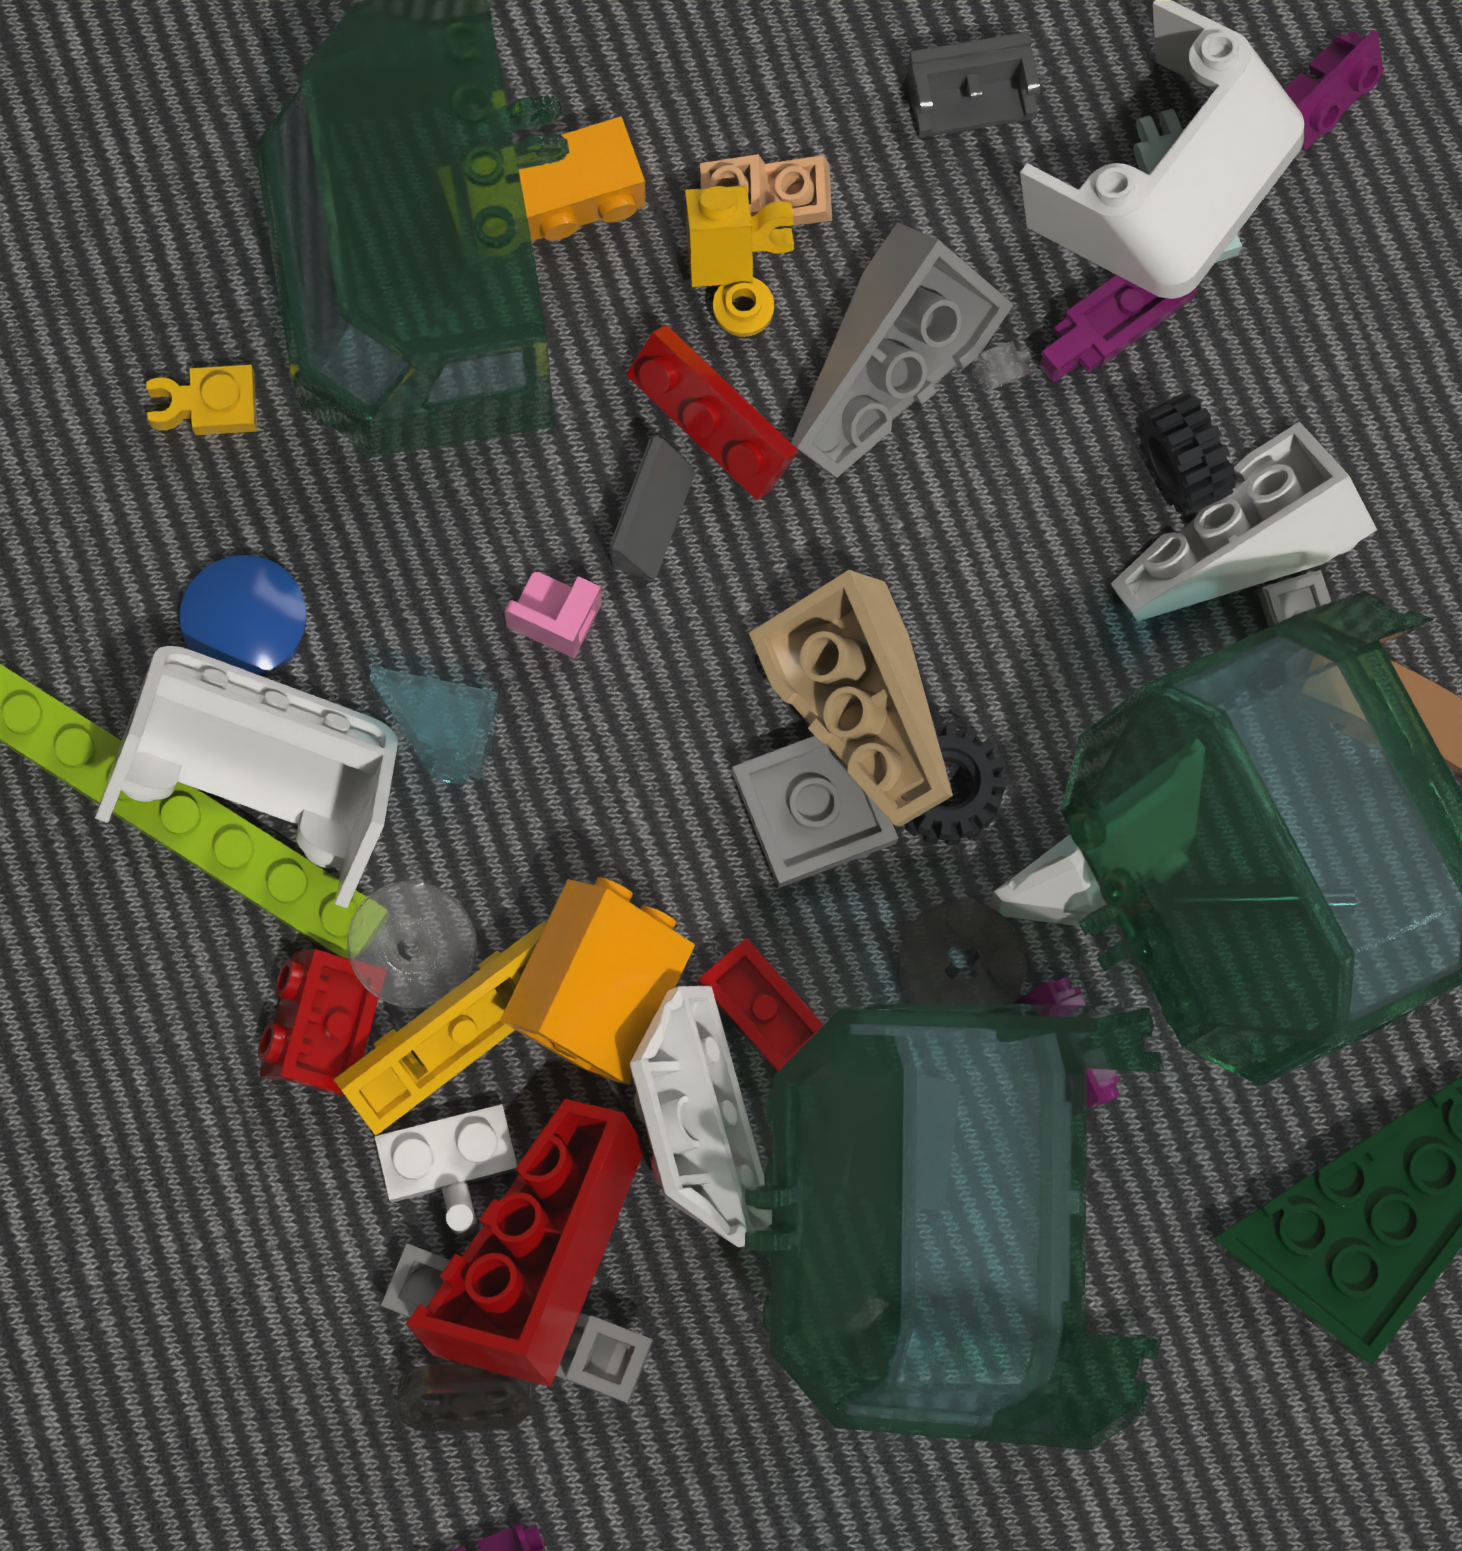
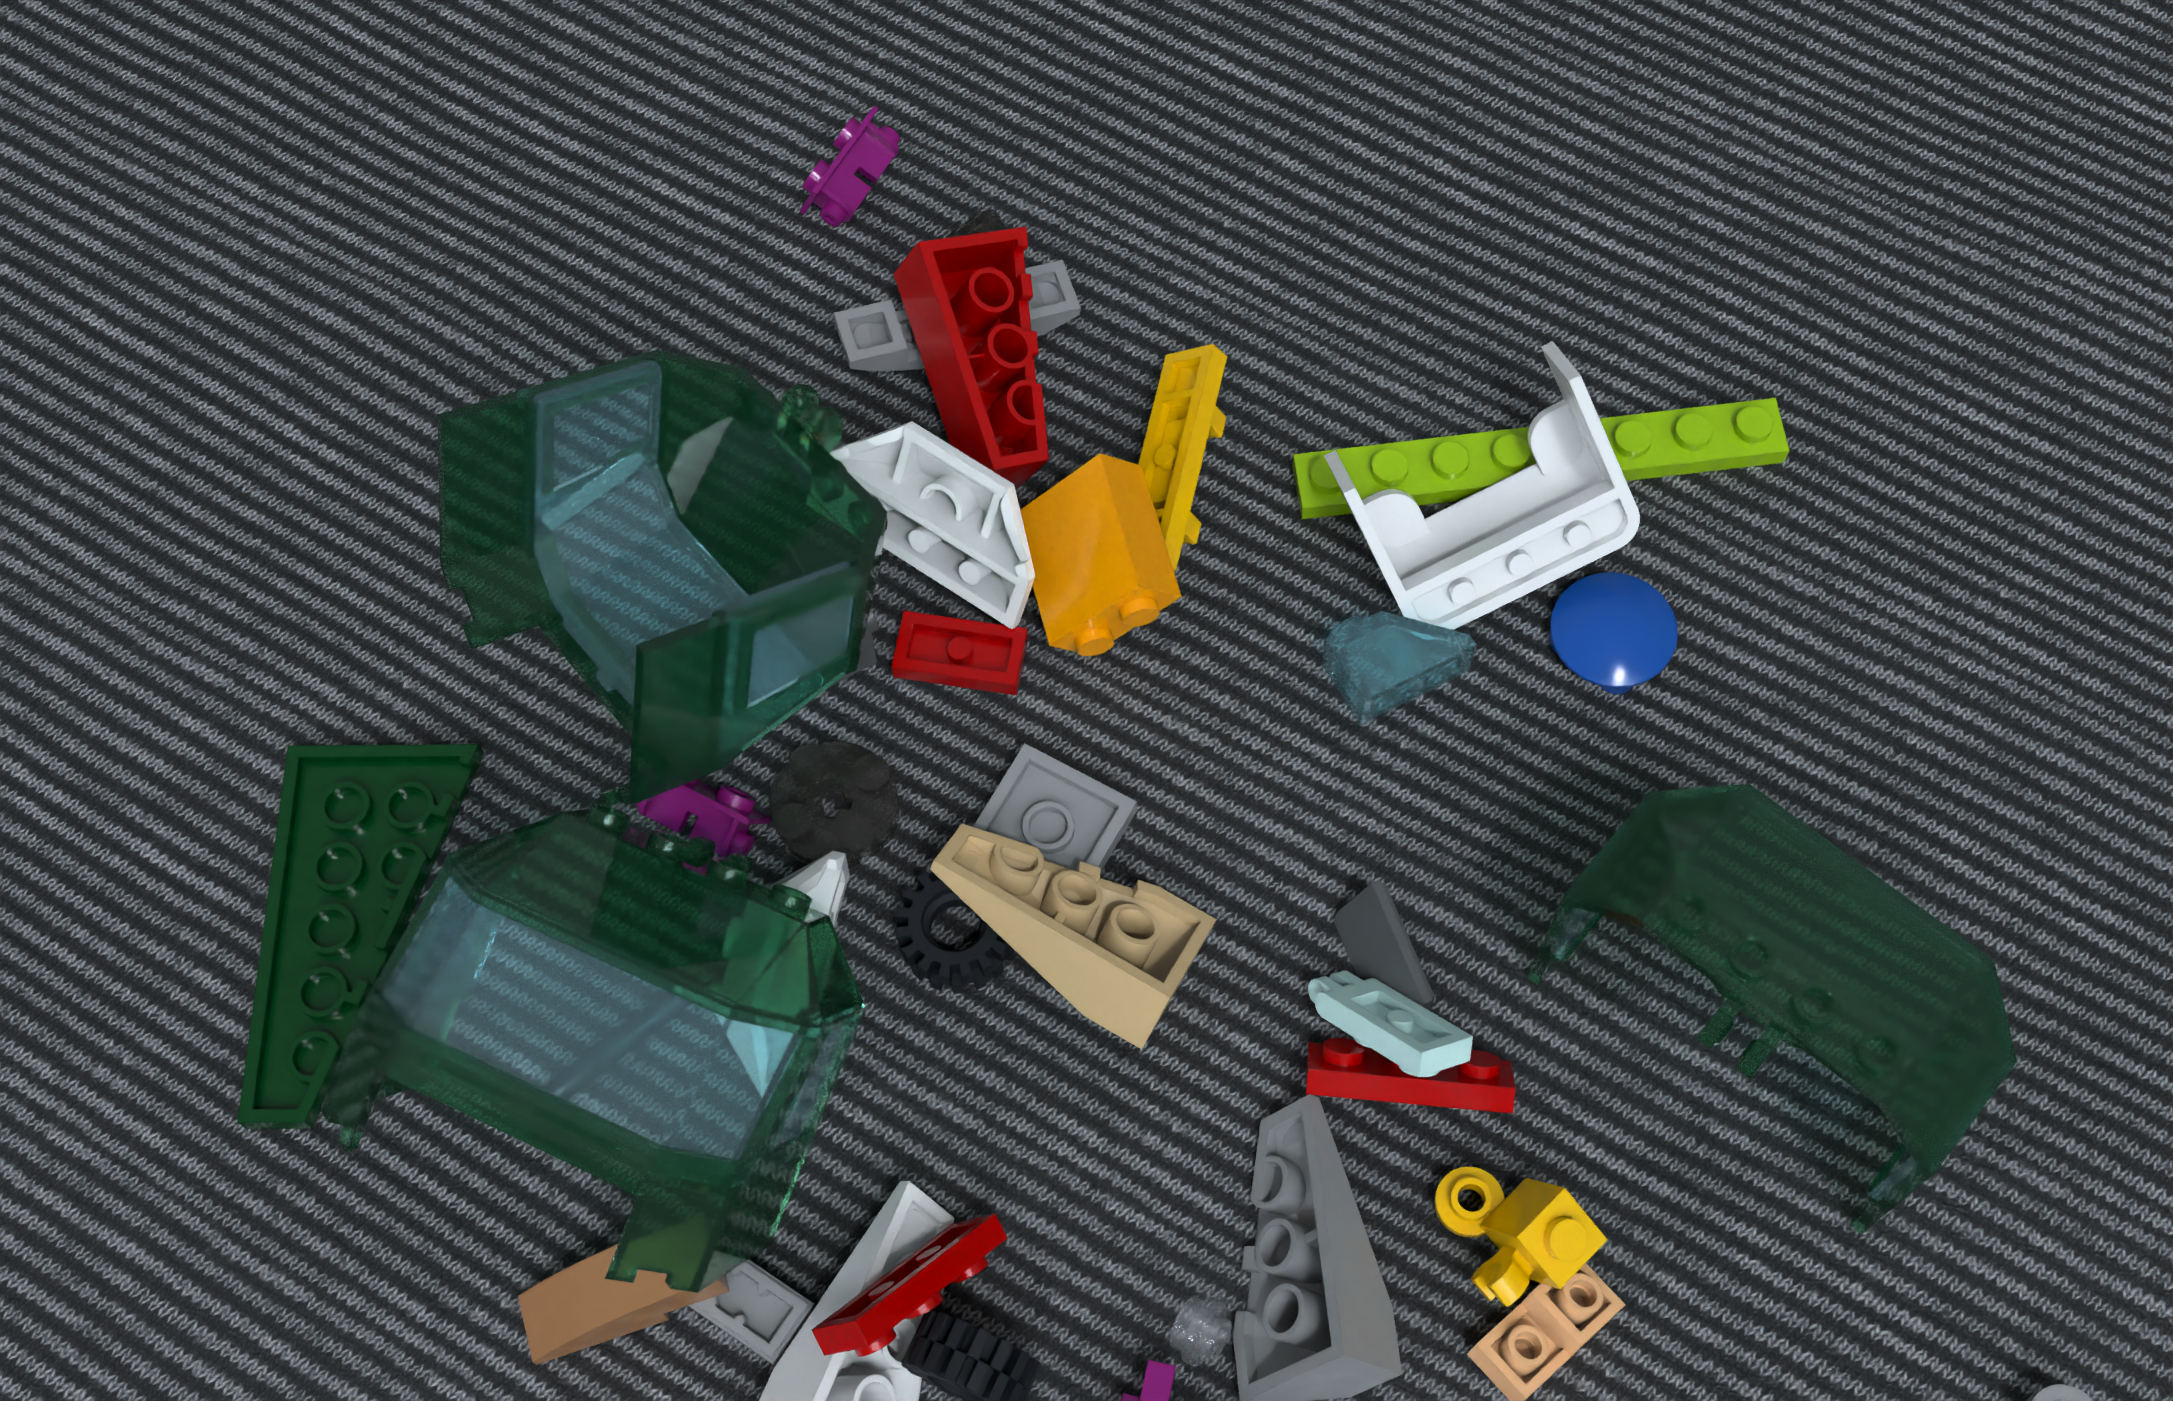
camera: 150 degrees right, 10 degrees down
(216, 401) = (1806, 773): yellow plate -> none
(318, 1022) = (1275, 401): red bracket -> none
(419, 916) = (1253, 464): clear dish -> none
(446, 1158) = (1101, 394): white plate -> none
(555, 612) = (1384, 815): bright pink panel -> none
(589, 185) = (1723, 1163): light orange brick -> none
(699, 446) = (1390, 1023): none -> light aqua hinge
(1191, 527) = (910, 1287): none -> red plate

